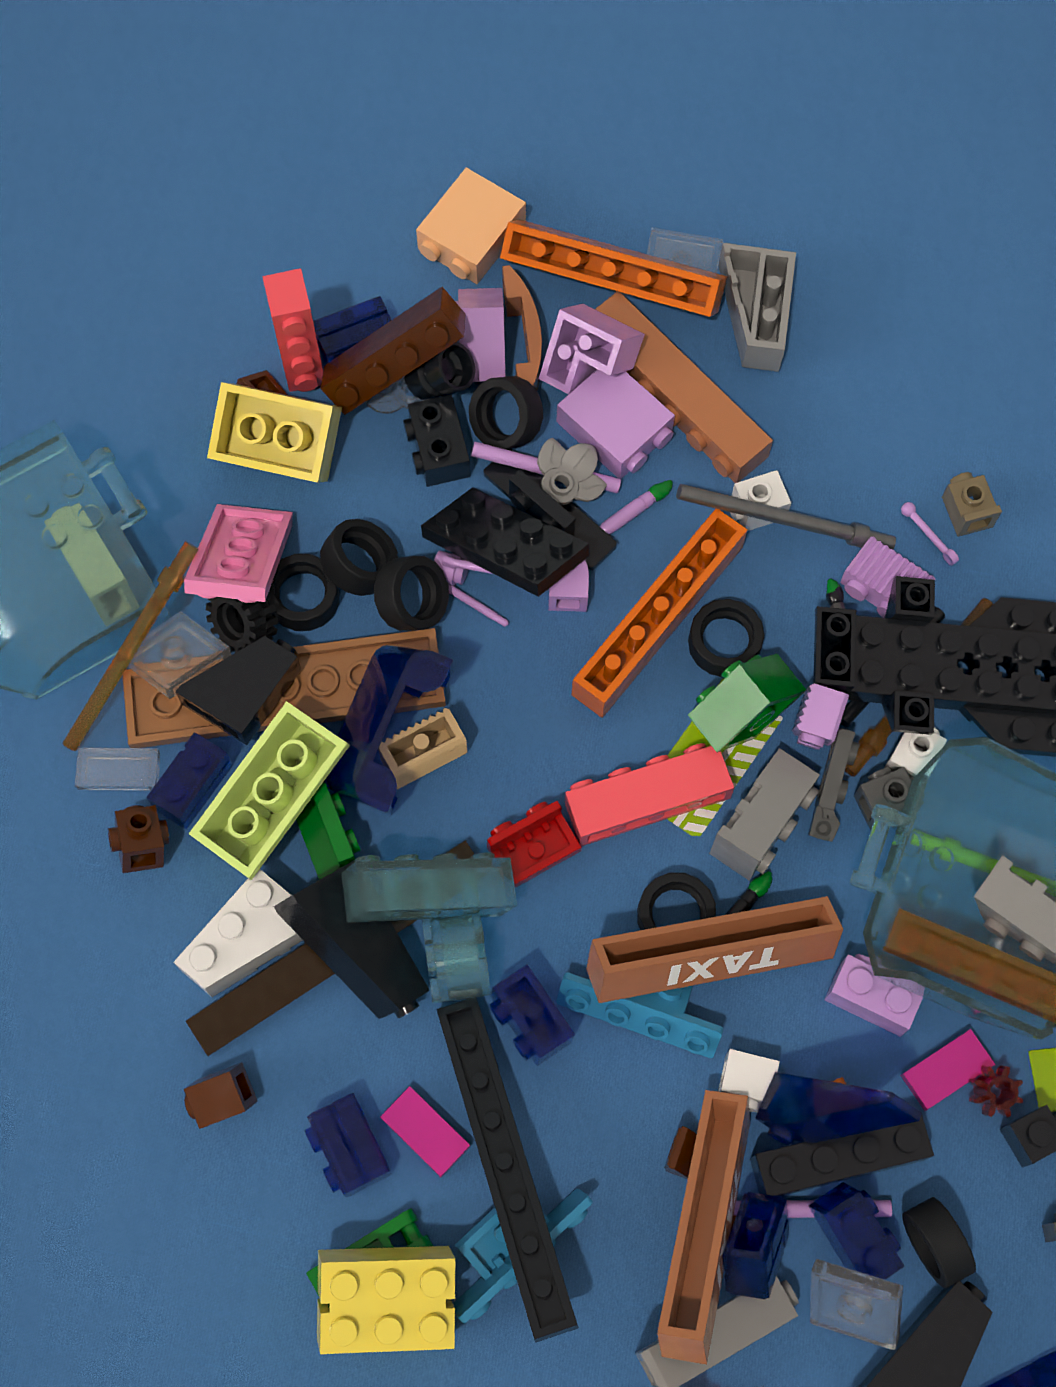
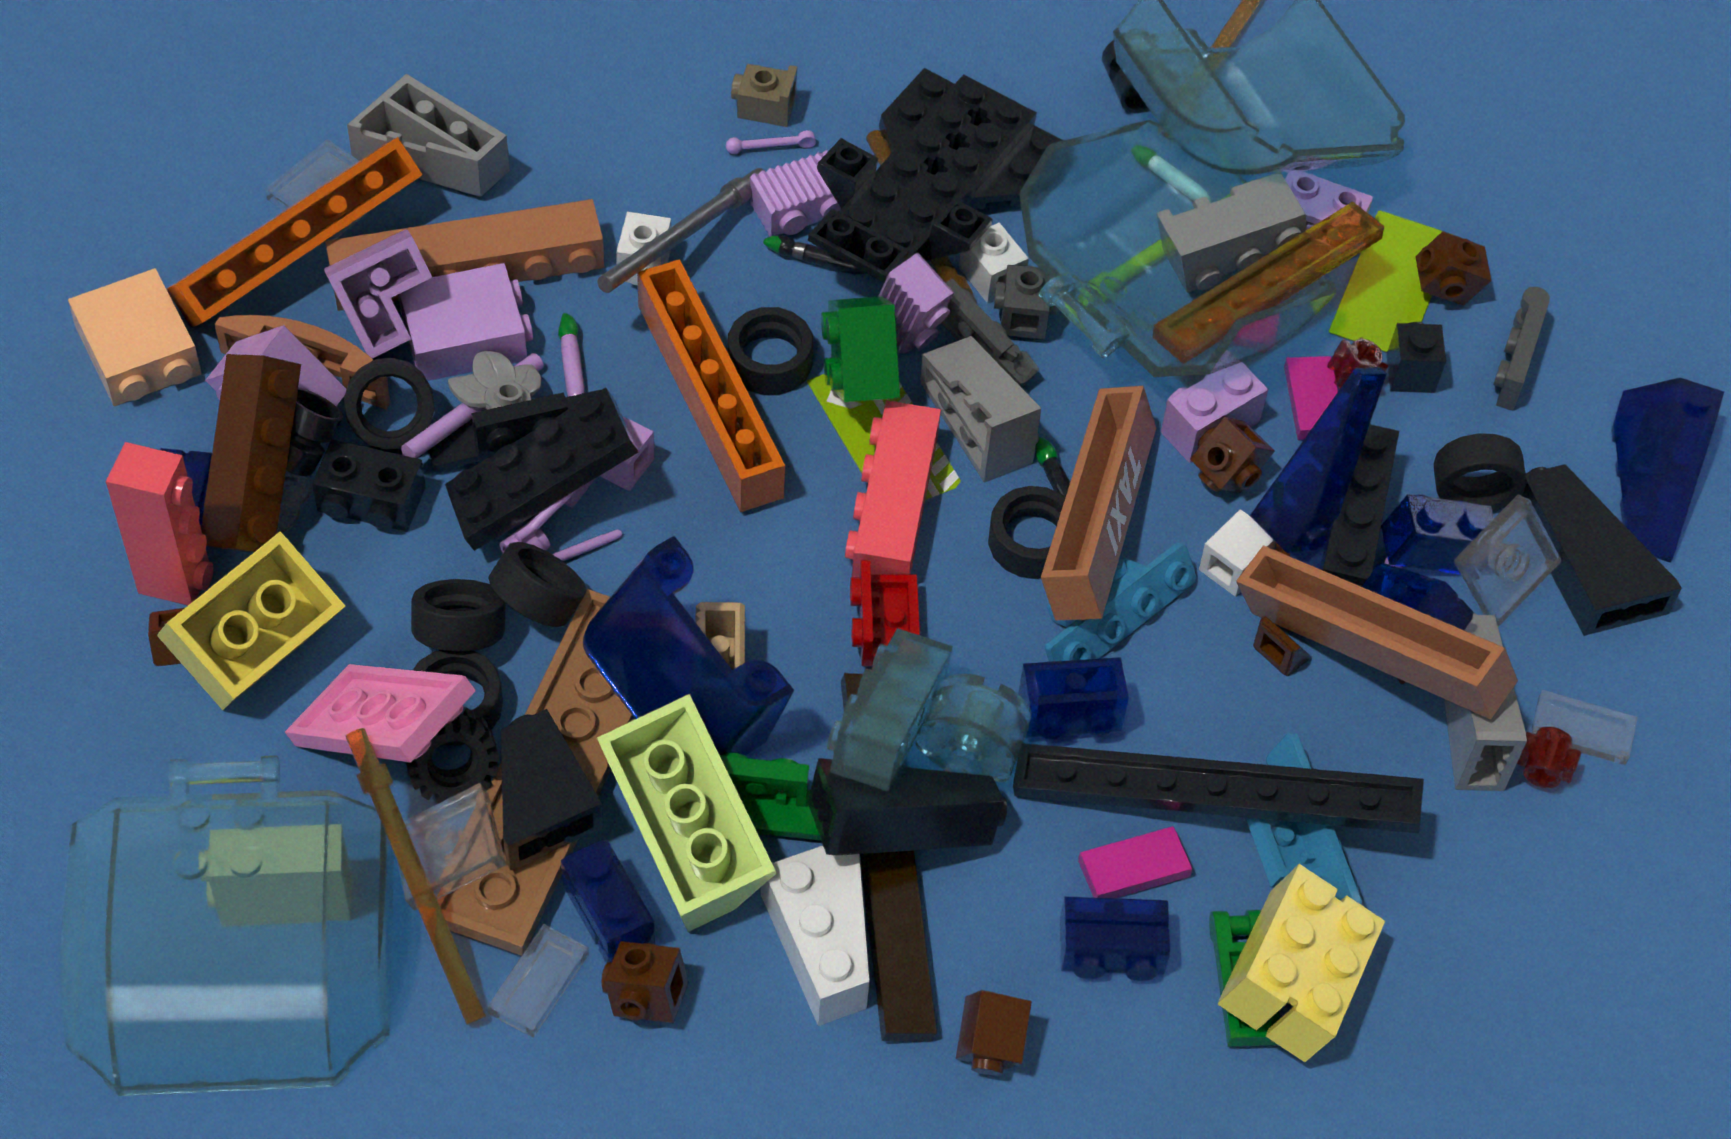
camera: 65 degrees left, 15 degrees down
(834, 1030) = (1231, 456): none -> reddish brown brick

